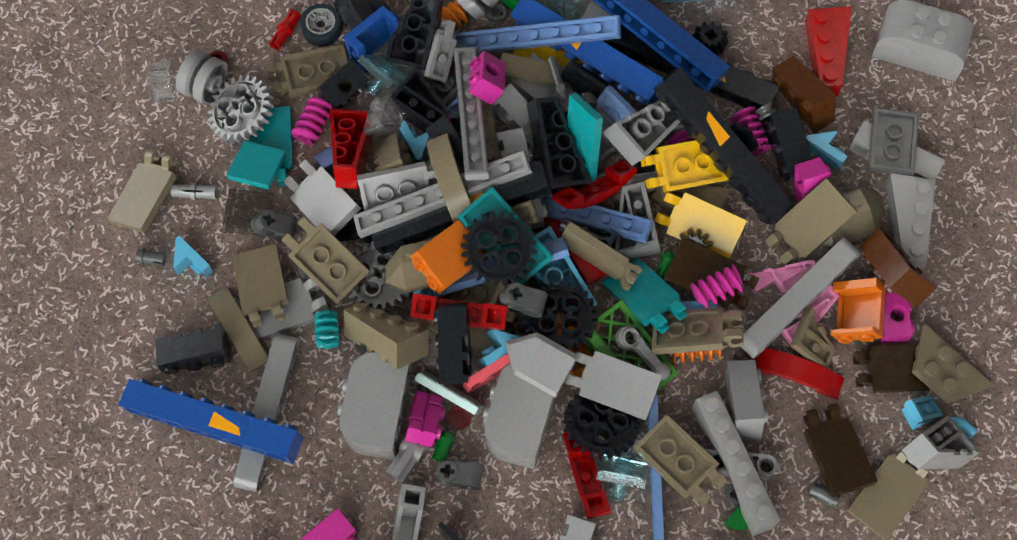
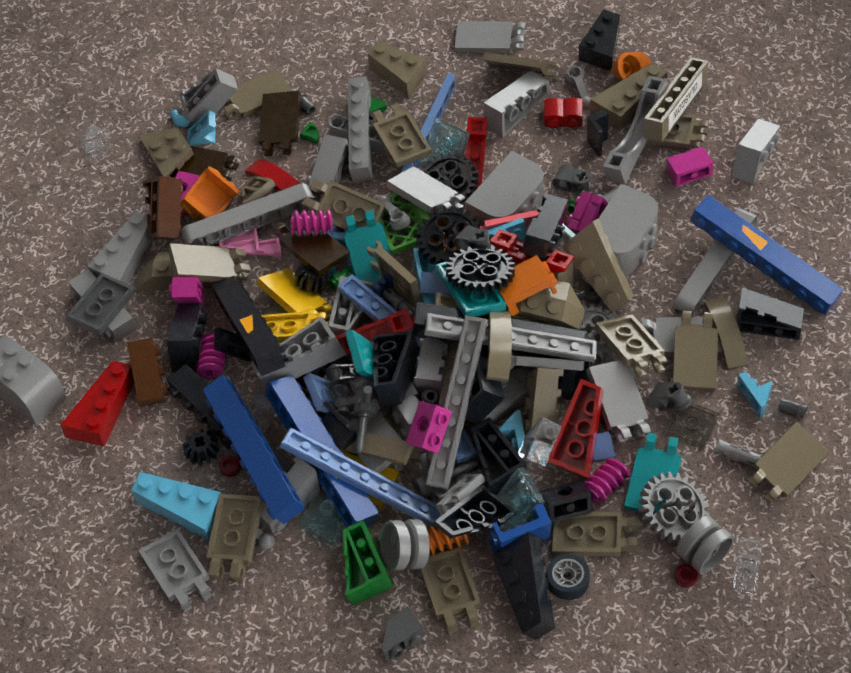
camera: 155 degrees left, 15 degrees down
(256, 164) = (672, 447): teal tile -> none
(285, 30) = (606, 584): red pin -> none
(326, 329) = (647, 300): teal gear -> none
(540, 361) = (478, 203): light grey tile -> none
(766, 110) = (191, 362): dark grey bush -> none
(795, 455) = (310, 133): none -> green tile
(821, 147) = (156, 326): medium azure slope -> none

